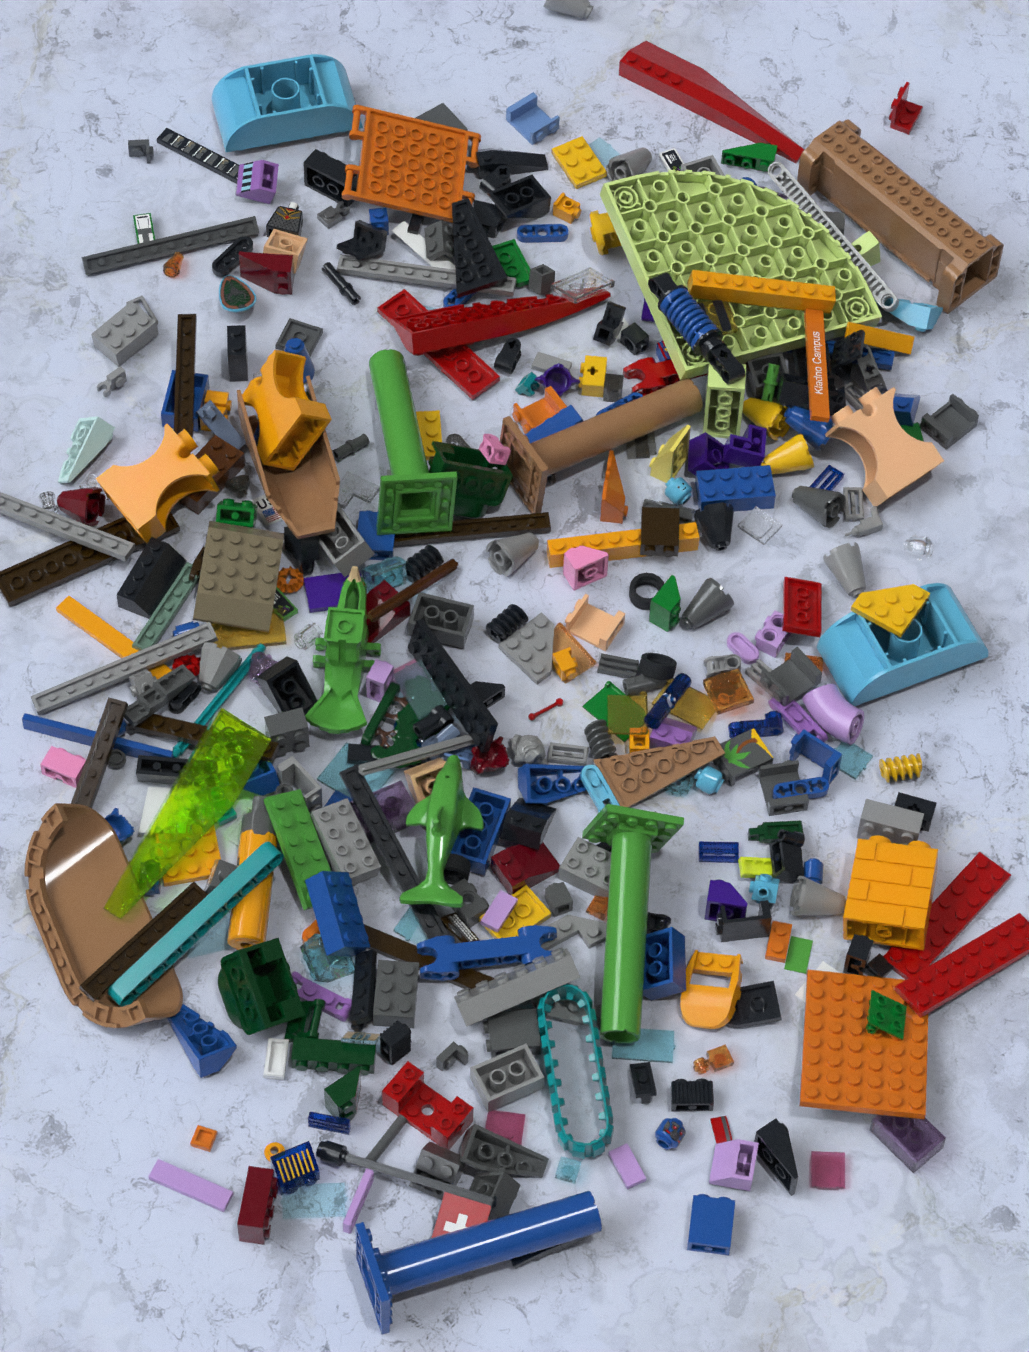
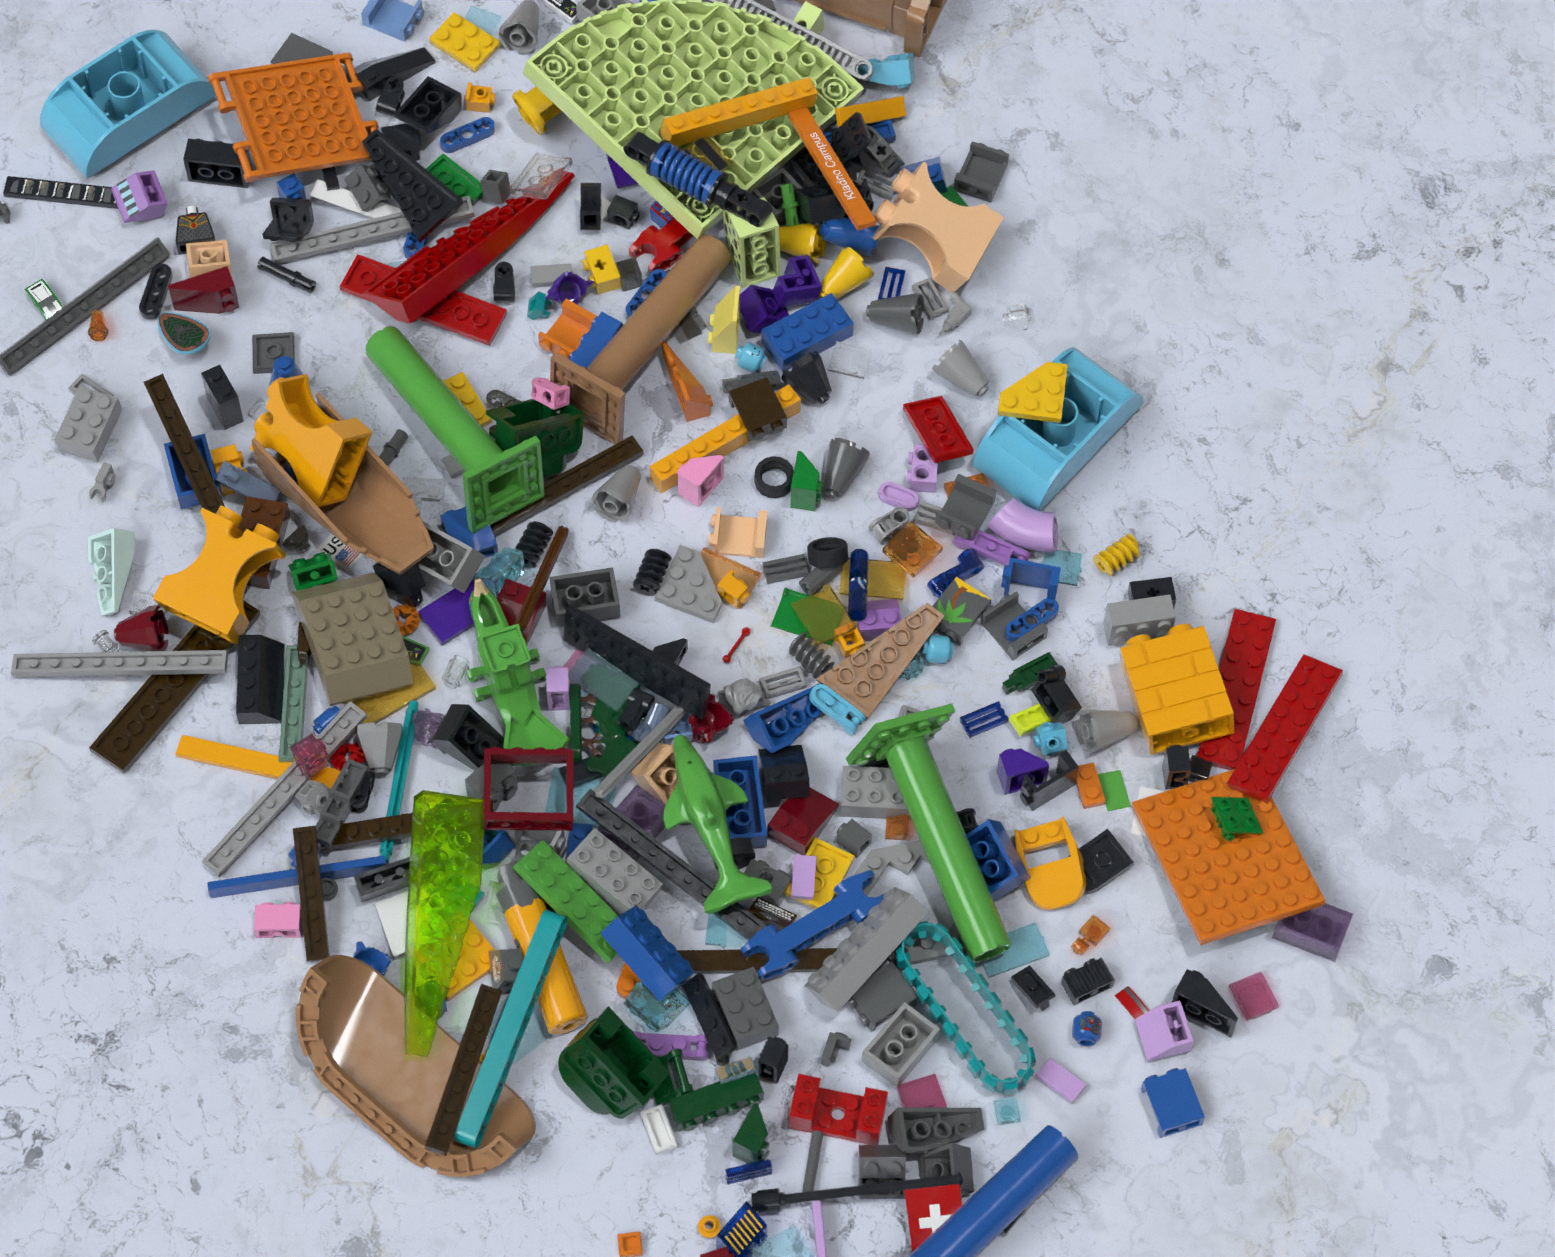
camera: 25 degrees left, 5 degrees up
(152, 648) = (310, 755): none -> clear pink brick
(202, 1042) = (577, 1147): blue wedge -> none
(297, 769) = (528, 820): none -> dark red window
(332, 216) = (237, 204): flat silver plate -> none
(814, 870) = (1087, 698): blue brick -> none

